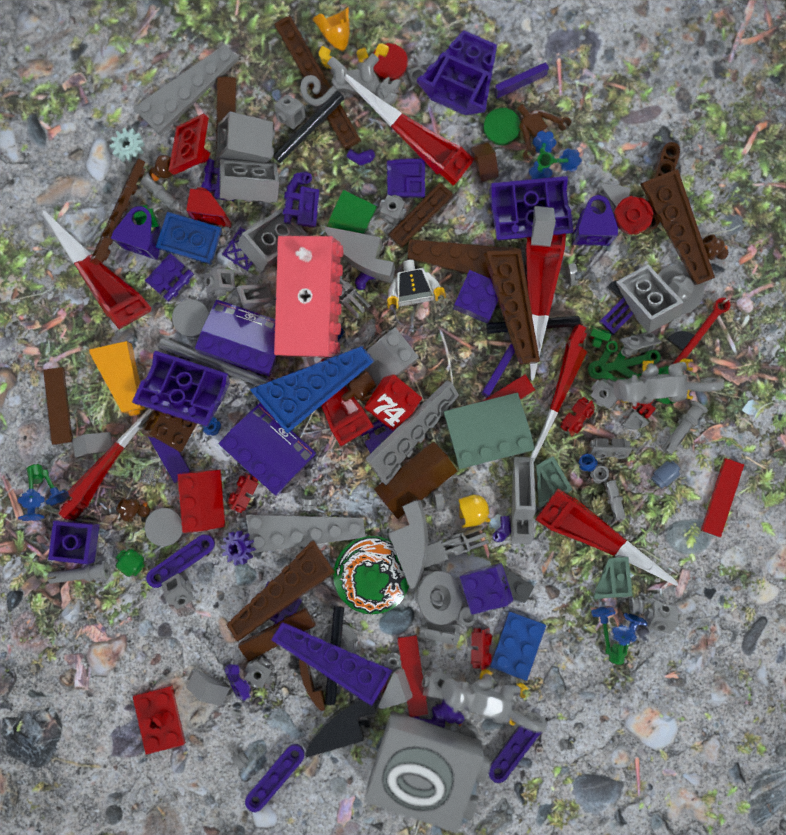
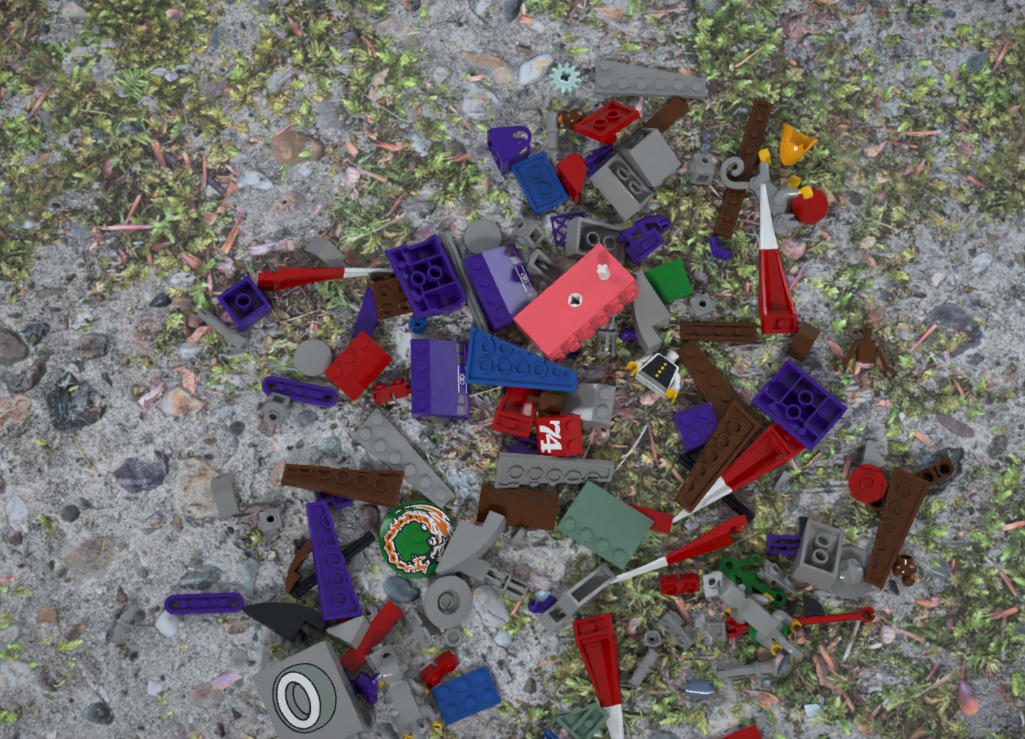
camera: 40 degrees right, 10 degrees down
(33, 499) = (252, 247): blue plant -> none
(58, 406) = (329, 204): reddish brown tile -> none
(101, 251) = (470, 132): reddish brown wing -> none
(114, 296) = (447, 168): red plate -> none
(120, 373) = (395, 225): light orange slope -> none
(129, 562) = (265, 356): green head -> none
(130, 507) = (304, 320): reddish brown animal -> none
(140, 217) = (521, 137): green tile -> none
(159, 720) = (169, 482): red plate -> none
(164, 275) = (497, 191): dark purple plate -> none
(238, 547) = (347, 423): dark purple gear -> none
(240, 687) = (249, 513): dark purple plate -> none
(261, 642) = (295, 504): reddish brown tile -> none
(308, 127) = (703, 192): black axle -> none
(406, 178) = (734, 295): dark purple plate -> none
(414, 74) = (818, 236): light grey tile -> none
(461, 75) = (851, 265): dark purple wedge -> none
(474, 510) = (535, 568): yellow helmet -> none
(486, 588) = (487, 629): dark purple brick -> none
(498, 371) = (656, 493): dark purple tile -> none
(501, 126) = (842, 329): green tile -> none
(519, 588) = (508, 650): dark grey plate -> none
(521, 80) = (889, 311): dark purple tile -> none
(541, 168) = (841, 384): blue plant -> none
(543, 226) = (792, 423): light grey slope -> none
(549, 479) = (614, 602): sand green wing -> none
(587, 462) = (651, 622): blue plate -> none
(596, 227) = (829, 464): dark purple hose -> none
(598, 335) = (754, 543): green tile -> none

